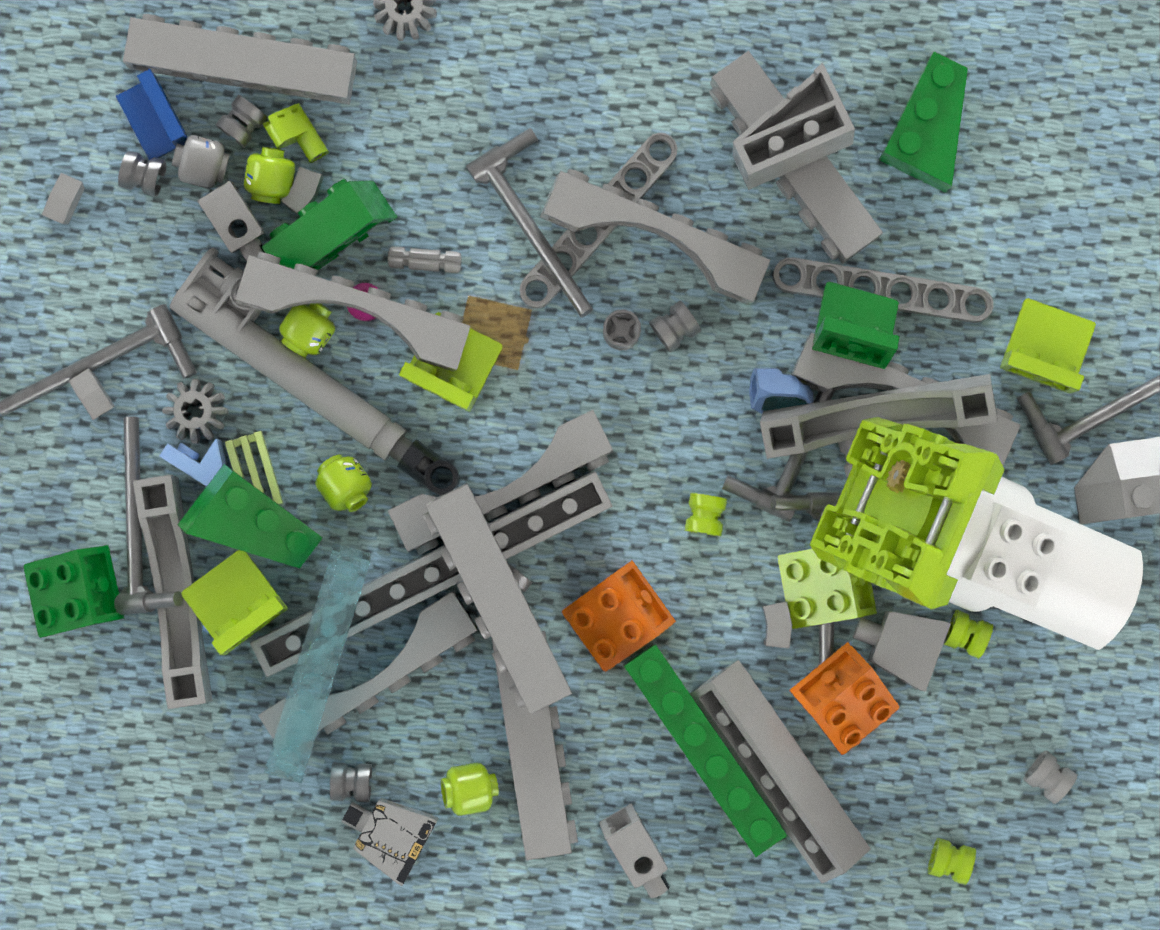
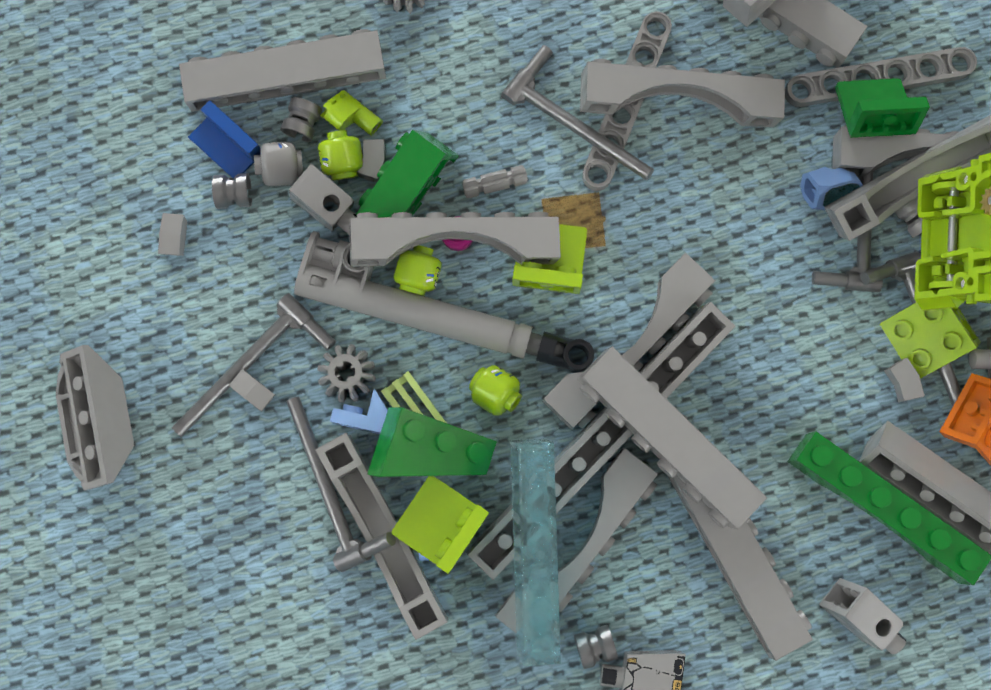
camera: 20 degrees left, 5 degrees down
(72, 590) = (293, 566): green bracket -> none
(468, 789) = (699, 616): lime head -> none
(618, 616) = (769, 422): orange bracket -> none
(625, 325) = (684, 174): flat silver wheel -> none
(673, 327) = (724, 163): flat silver wheel -> none
(705, 514) = (810, 305): lime wheel -> none

